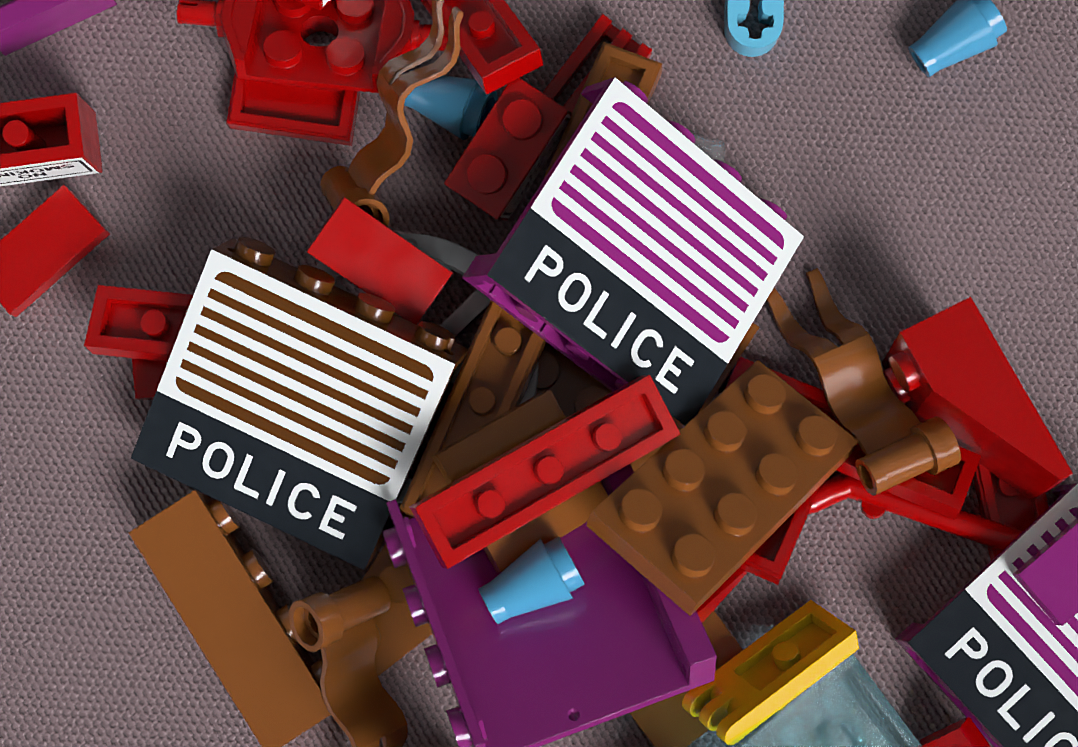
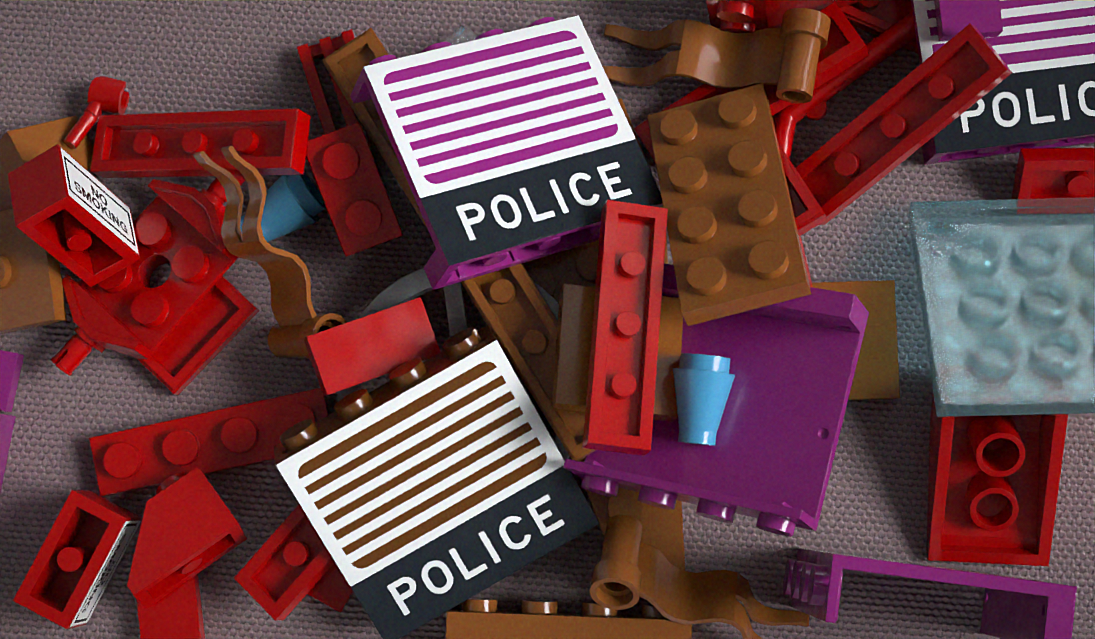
camera: 50 degrees left, 0 degrees up
(104, 214) = (180, 536): none -> red slope
(200, 175) = (205, 440): none -> red plate
(771, 672) = (889, 269): yellow hinge -> none
(916, 591) = (902, 120): none -> red plate

